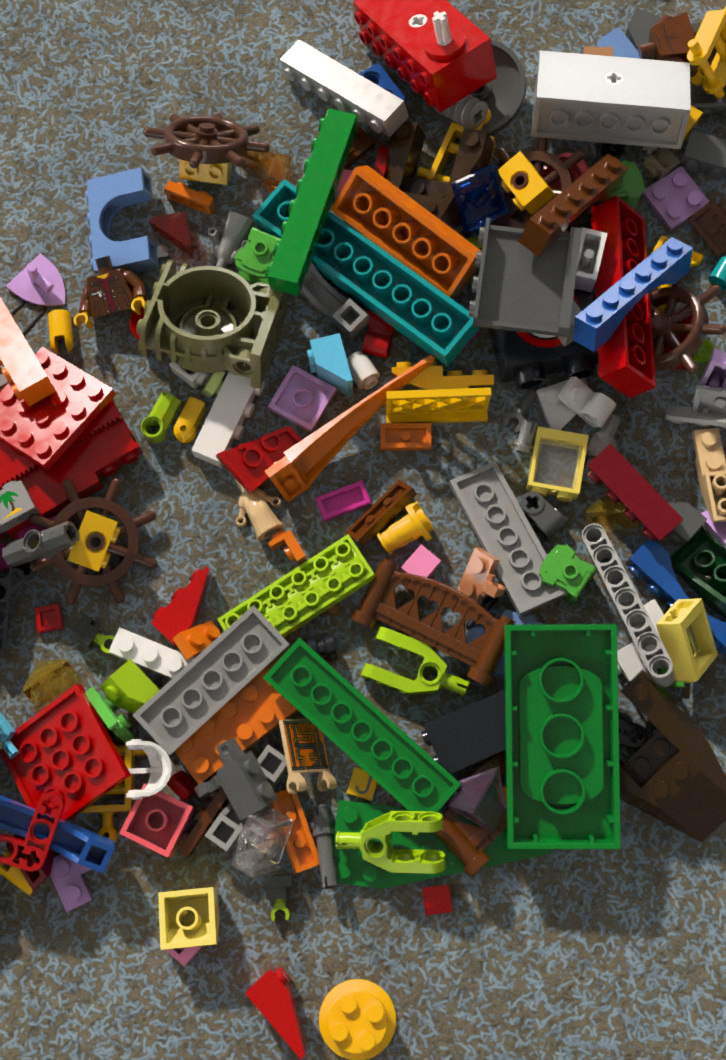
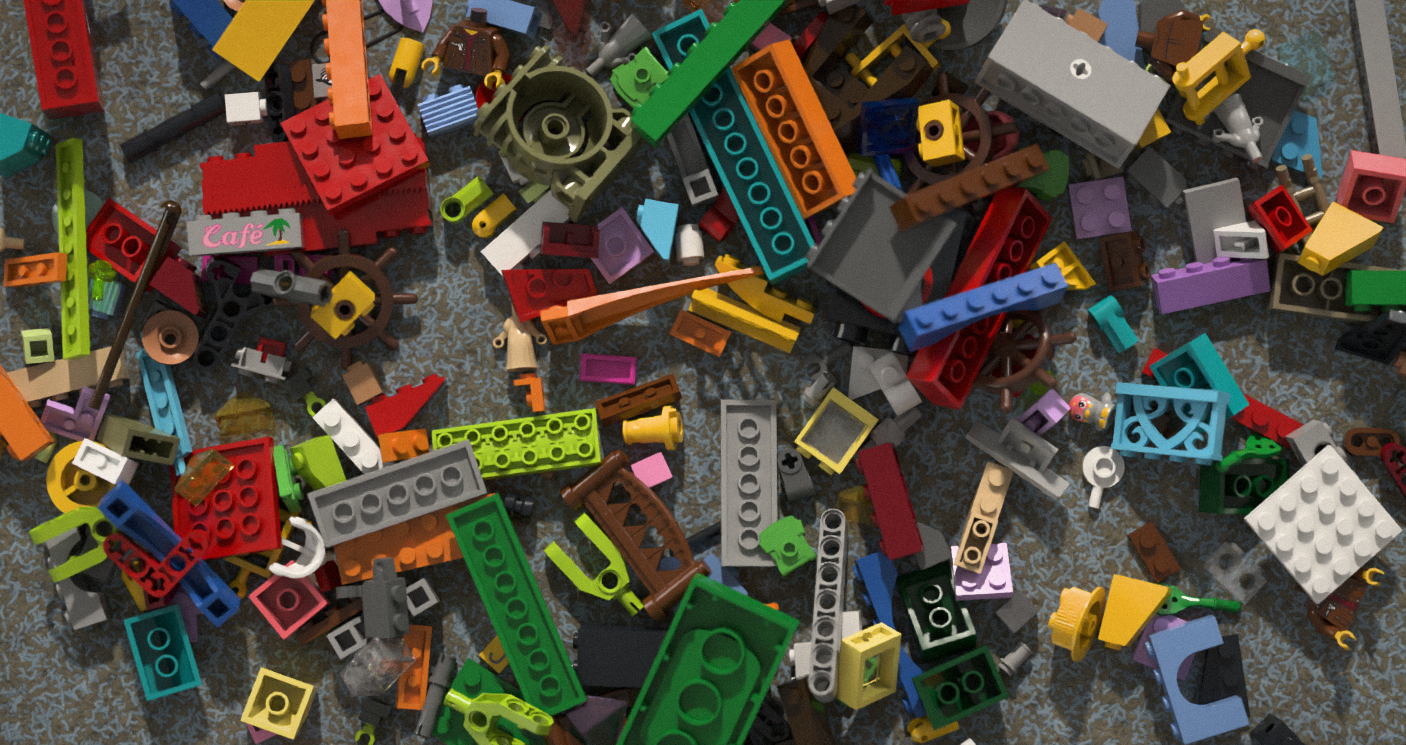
camera: 25 degrees right, 10 degrees up
(33, 745) = (202, 475): none -> clear yellow slope
(35, 633) = (251, 363): none -> light grey hinge
(63, 922) = (162, 652): none -> teal slope
(113, 353) = (448, 111): none -> light blue brick
(139, 605) = (362, 383): none -> medium nougat brick
(262, 406) = (569, 239): none -> dark red hinge
(305, 754) = (454, 601): flag -> none
(479, 577) = (700, 512): nougat hinge -> none
(589, 258) = (958, 247): white brick -> none

